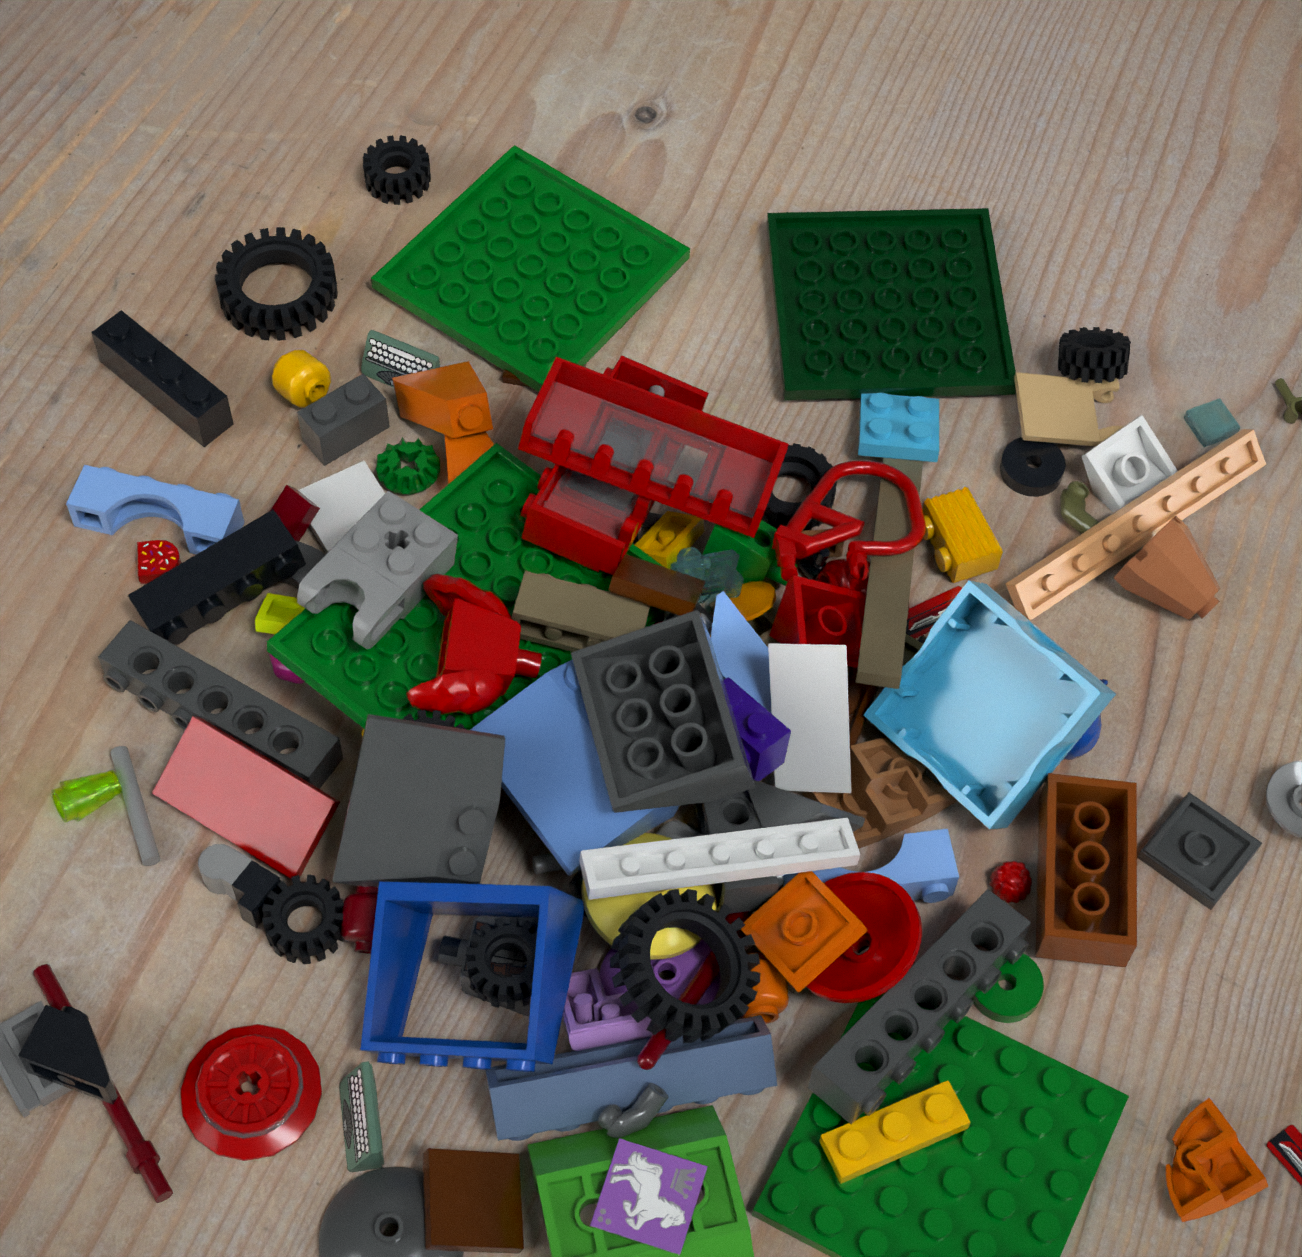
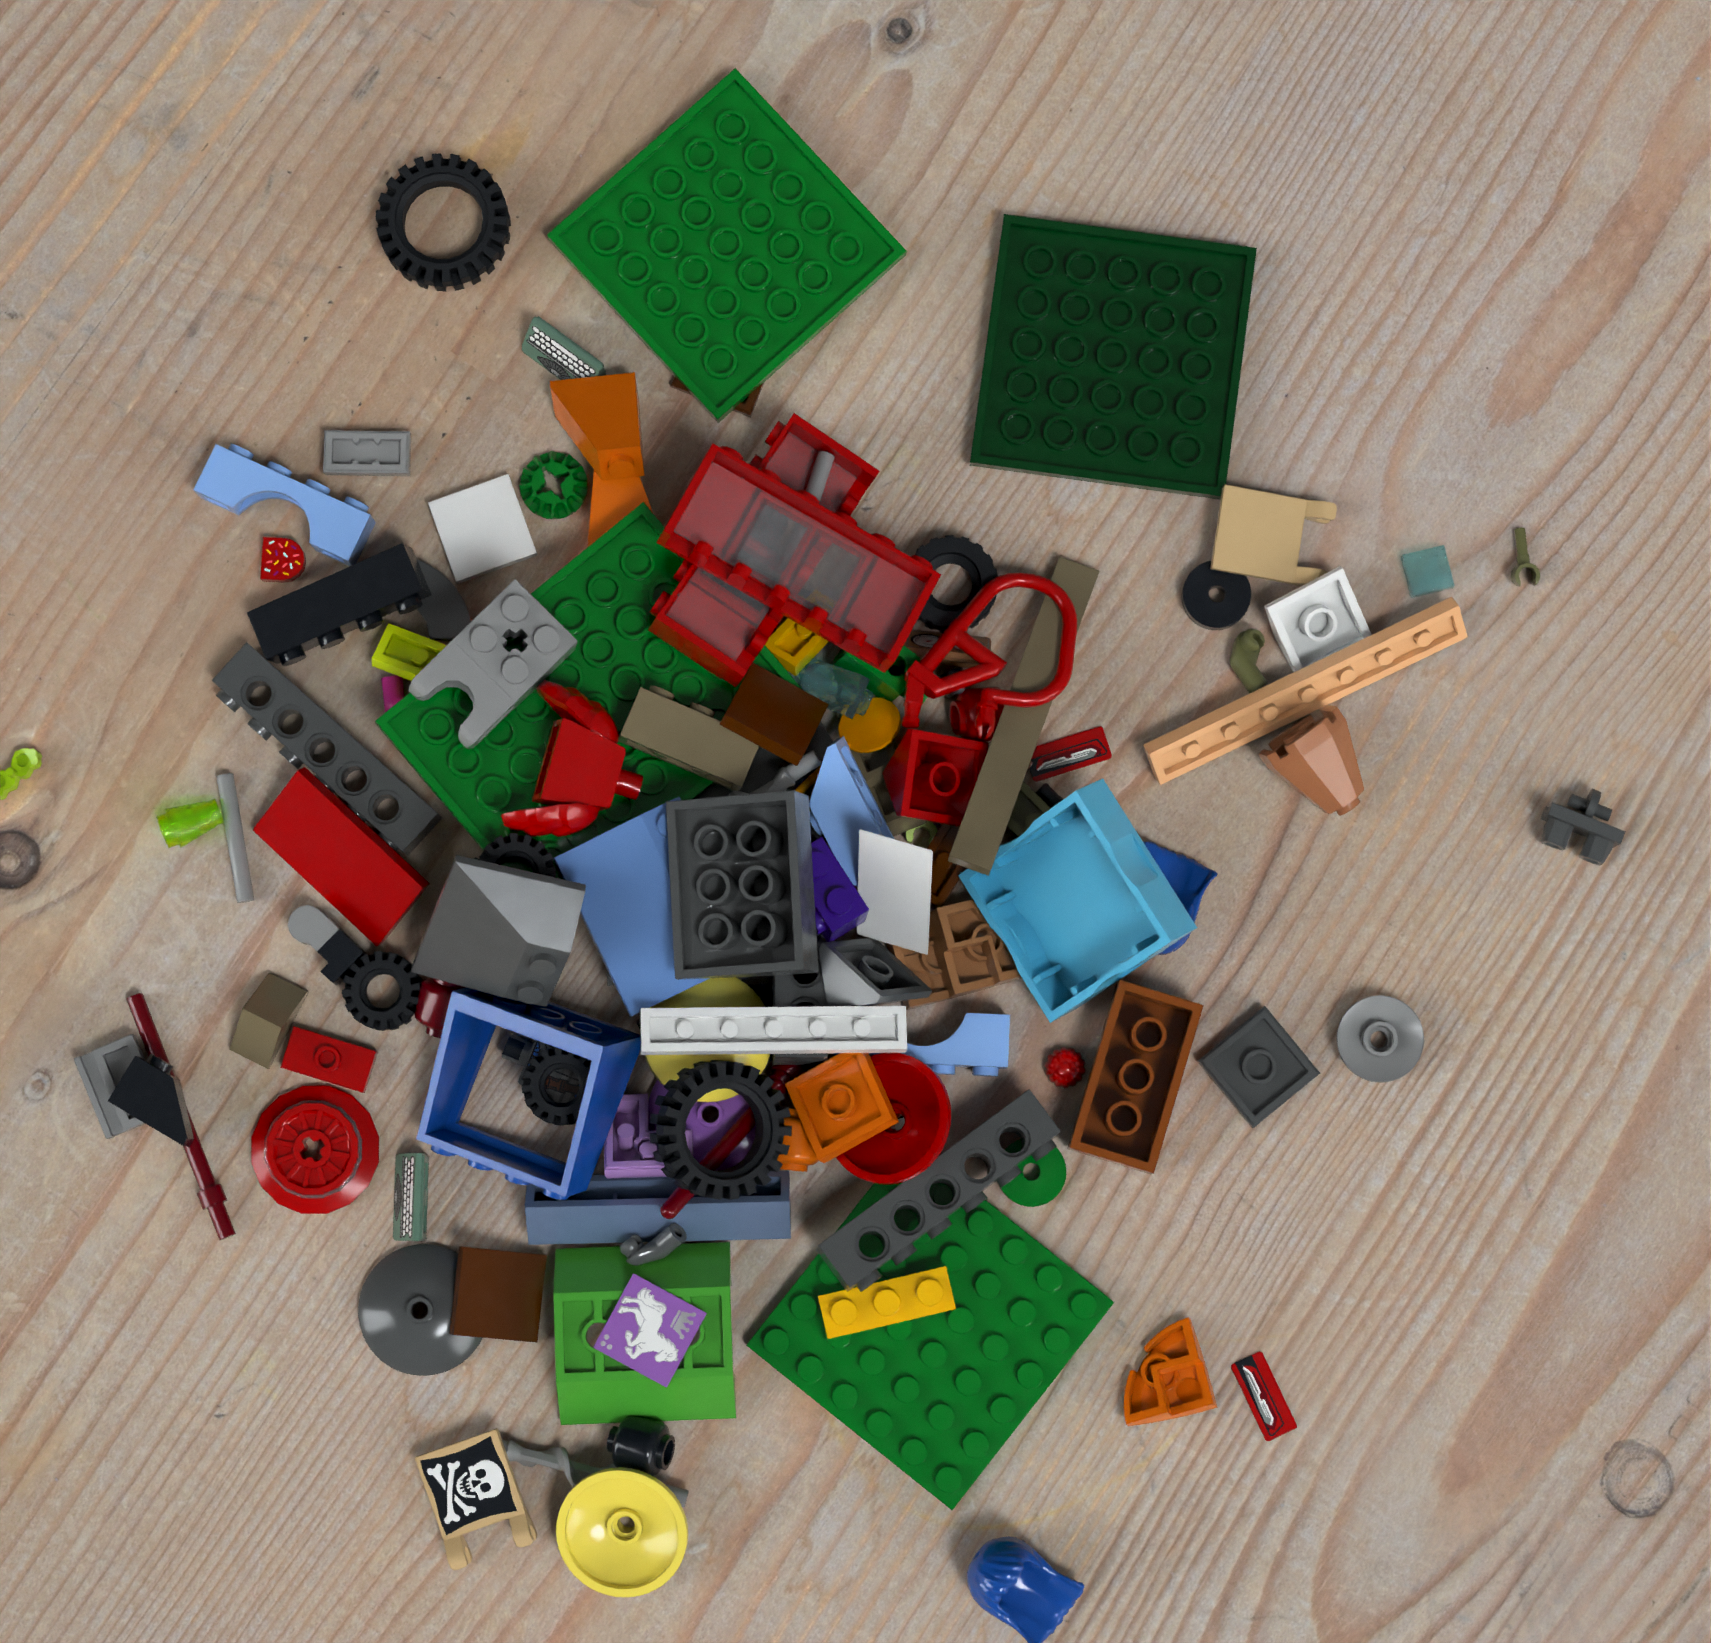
camera: 15 degrees right, 25 degrees up
(163, 378) = (307, 335): black brick -> none
(184, 970) = (267, 1020): none -> dark tan slope
(229, 463) = (367, 453): none -> light grey plate
(255, 997) = (329, 1059): none -> red plate
(295, 511) = (425, 530): dark red tile -> none
(301, 378) = (454, 358): yellow head -> none
(343, 419) = (492, 421): dark grey brick -> none
(391, 155) = (597, 103): black tyre -> none
(899, 427) = (1083, 525): medium azure plate -> none
(960, 535) = (1112, 674): yellow brick -> none
(1094, 355) = (1319, 456): black tyre -> none

